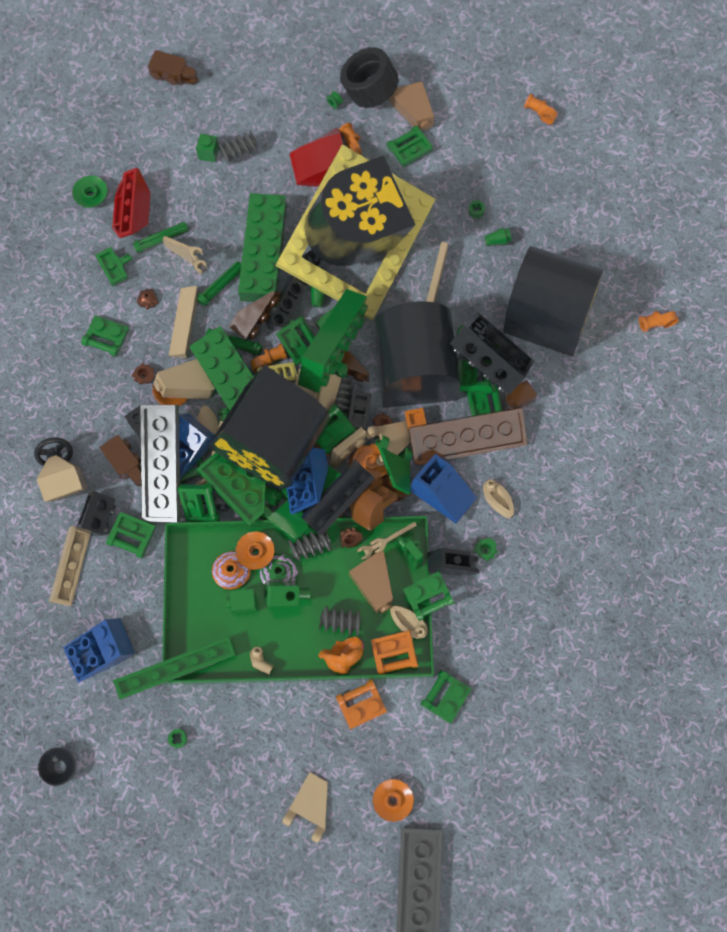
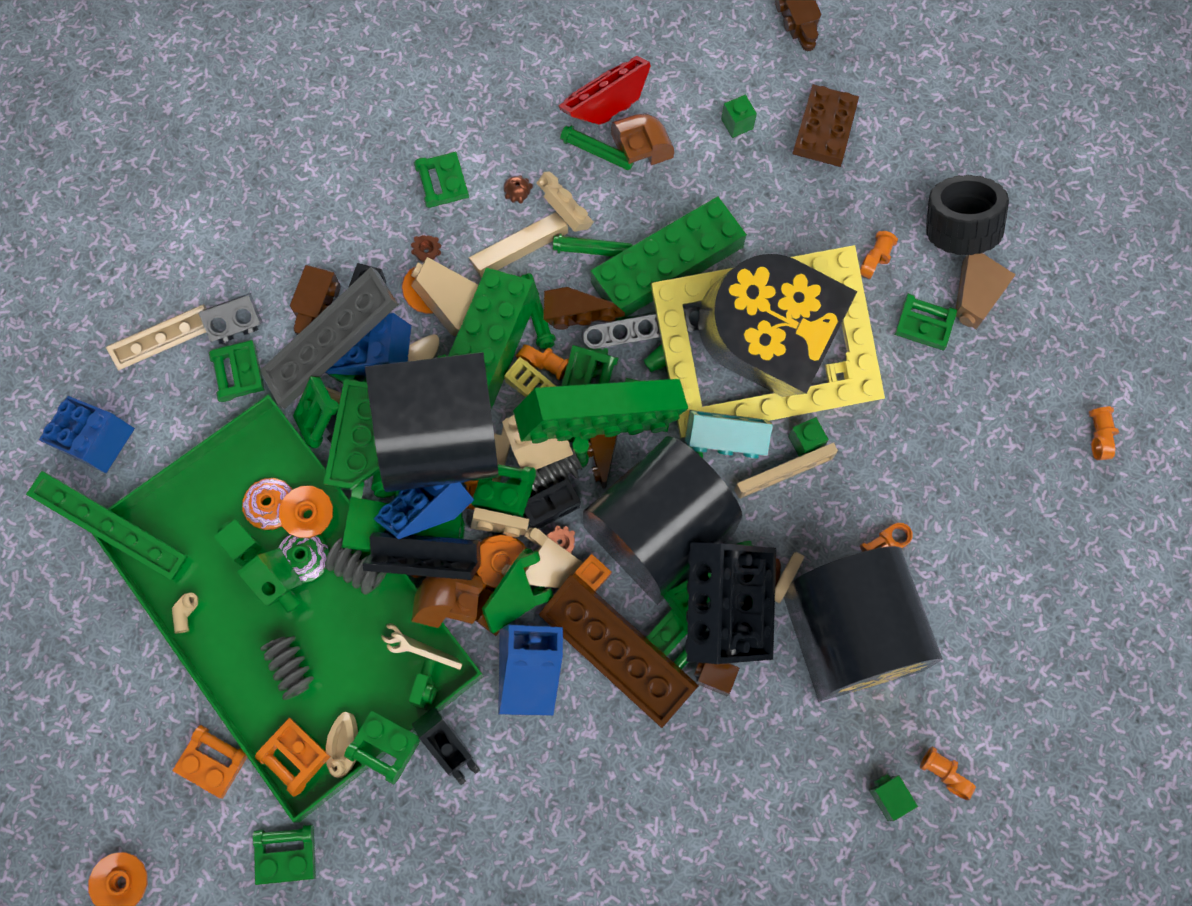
camera: 50 degrees right, 0 degrees up
(58, 475) = (244, 248): tan piece -> none
(88, 185) = (590, 34): green dish -> none
(113, 265) = (525, 127): green plate -> none
(171, 739) = (37, 582): green bush -> none
(177, 208) = (642, 138): none -> dark orange brick
(177, 278) = (563, 203): none -> tan hinge
(186, 252) = (596, 189): tan flag -> none
(238, 146) = (766, 146): dark grey piece -> none
(253, 107) = (826, 125): none -> reddish brown plate
(310, 804) = (57, 790): tan flag -> none
(314, 158) = (820, 230): red wedge -> none
(334, 100) = (911, 201): green bush -> none
(343, 654) = (249, 698): orange hair -> none
(350, 537) = (396, 604): copper animal -> none
(373, 582) = (360, 671): medium nougat slope -> none
(393, 289) = (728, 434): none -> brick
(427, 253) = (808, 437): none -> green brick
(474, 204) = (916, 447): green bush -> none
(487, 544) = (499, 765): green animal -> none
(494, 318) = (788, 576): none -> tan tile
(498, 237) = (896, 504): green cone -> none
(498, 498) = (570, 741): tan arm -> none
(515, 258) = (886, 540): none -> orange connector
(650, 356) = (892, 797): none -> green brick

